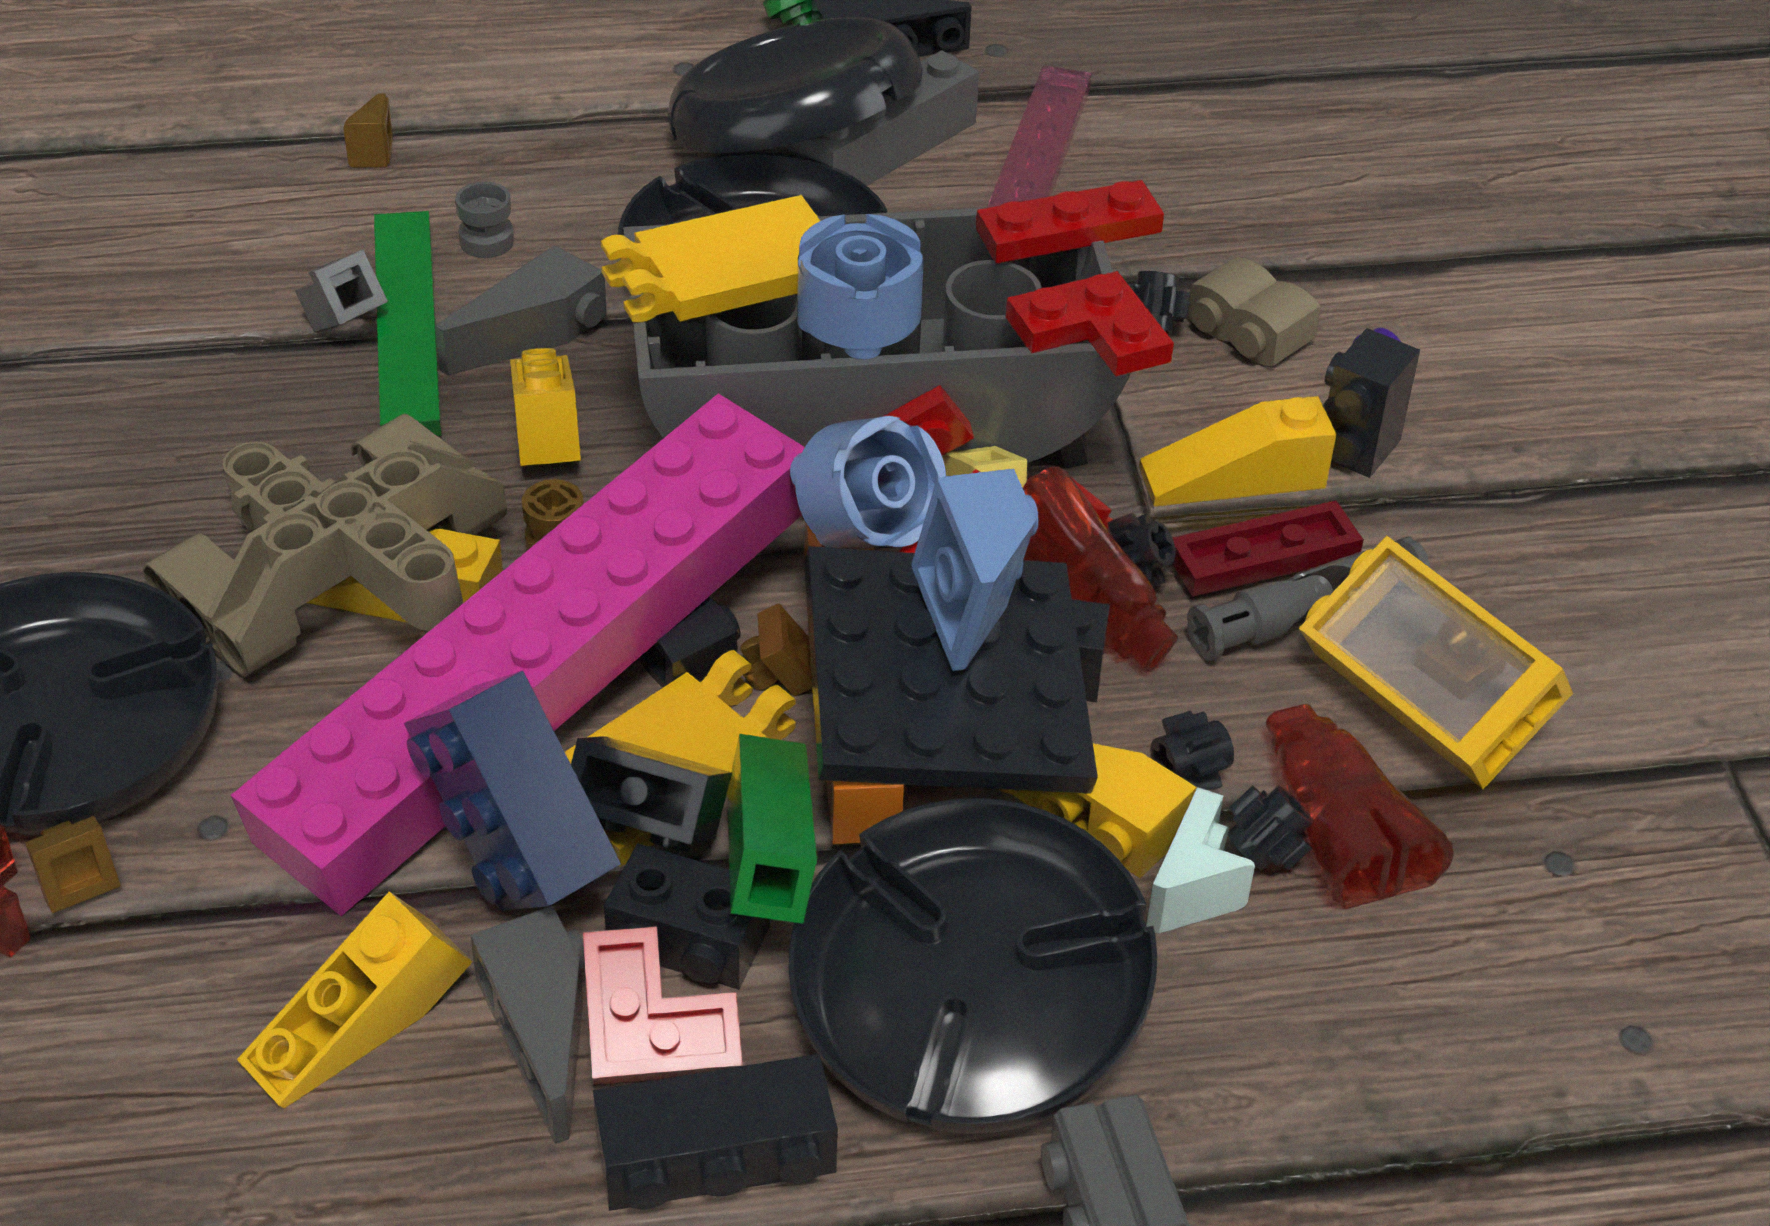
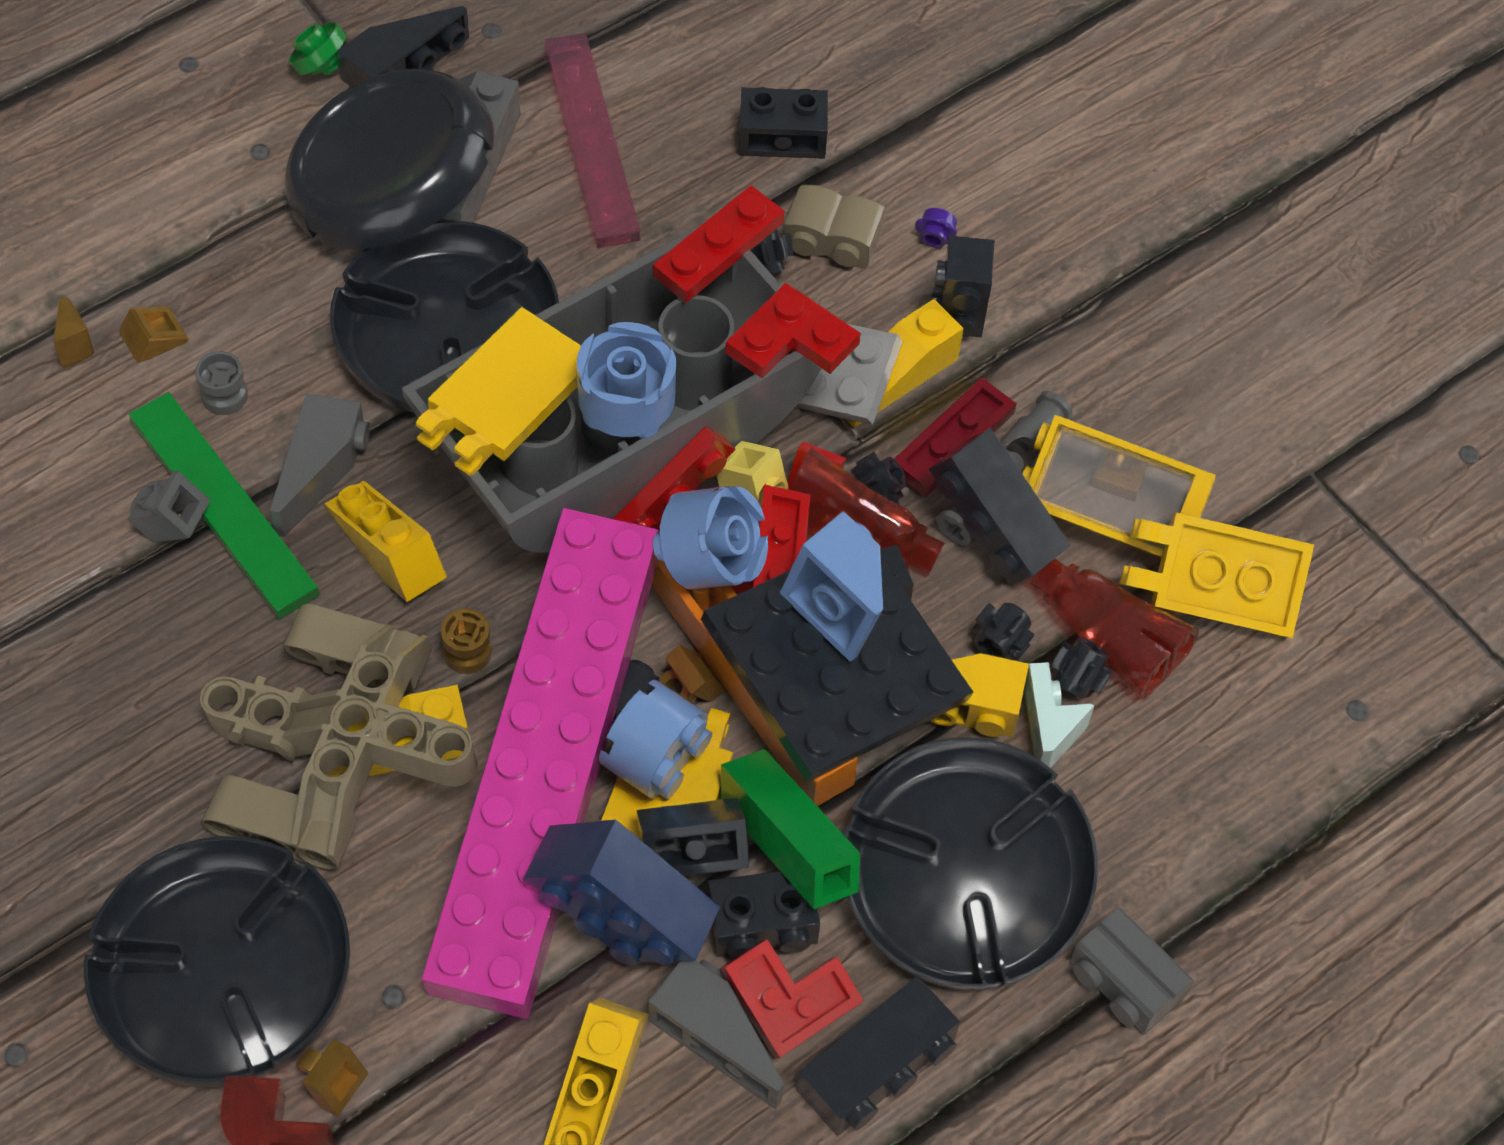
camera: 30 degrees left, 15 degrees up
(456, 163) = (151, 332): none -> pearl gold slope
(674, 671) = (656, 740): none -> medium blue brick
(1168, 433) = (858, 382): none -> light grey plate
(1257, 207) = (783, 122): none -> black brick
(1262, 613) = (999, 507): none -> black brick
(1524, 795) = (1224, 573): none -> yellow tile

